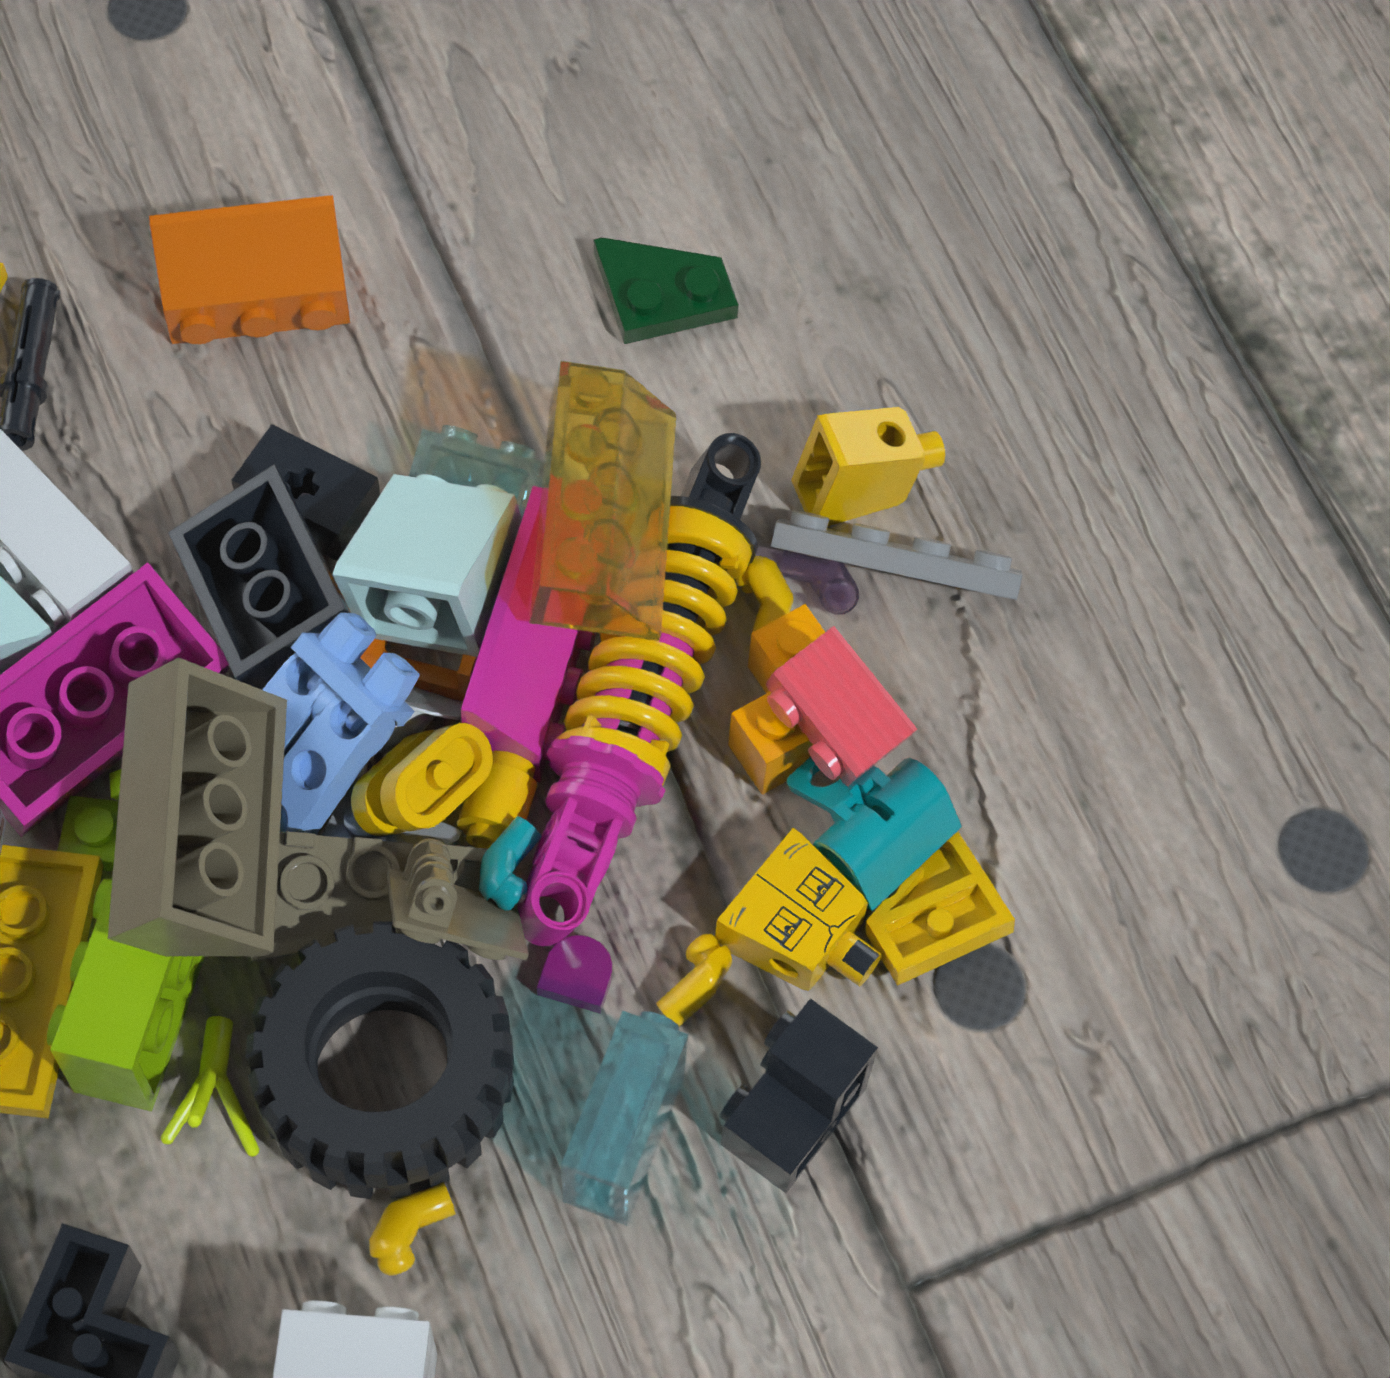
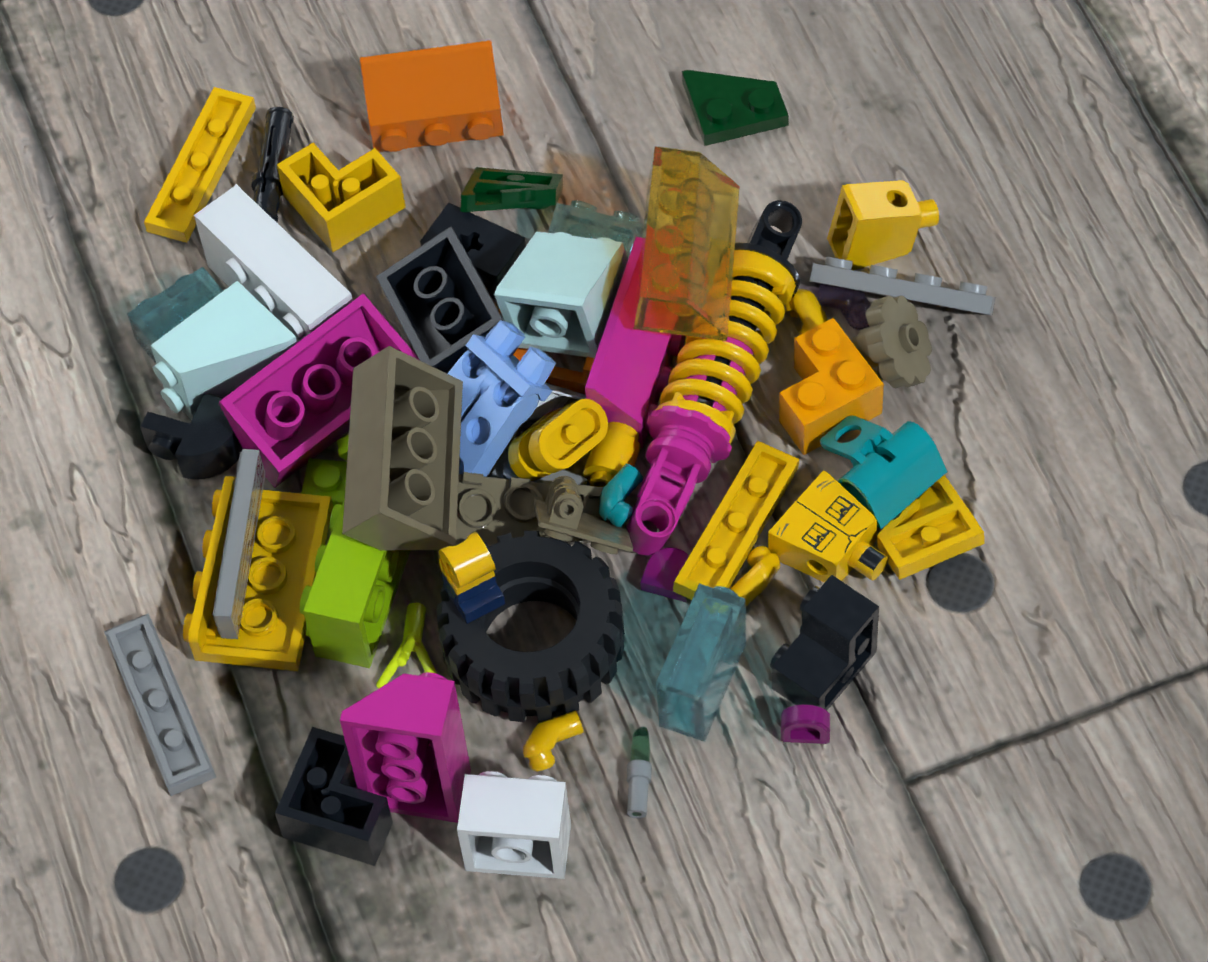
camera: 10 degrees right, 5 degrees down
(124, 418) = (341, 201): none -> yellow brick
(203, 1265) = (410, 745): none -> dark pink slope
(294, 1007) = (470, 578): none -> leg
(356, 405) = (510, 189): none -> dark green wing
(534, 1278) = (639, 774): none -> light grey piece
(671, 902) = (738, 520): none -> yellow plate
(769, 1207) = (805, 724): none -> magenta tile
(838, 707) = (854, 383): coral brick -> none
(892, 635) = (895, 342): none -> dark tan plant

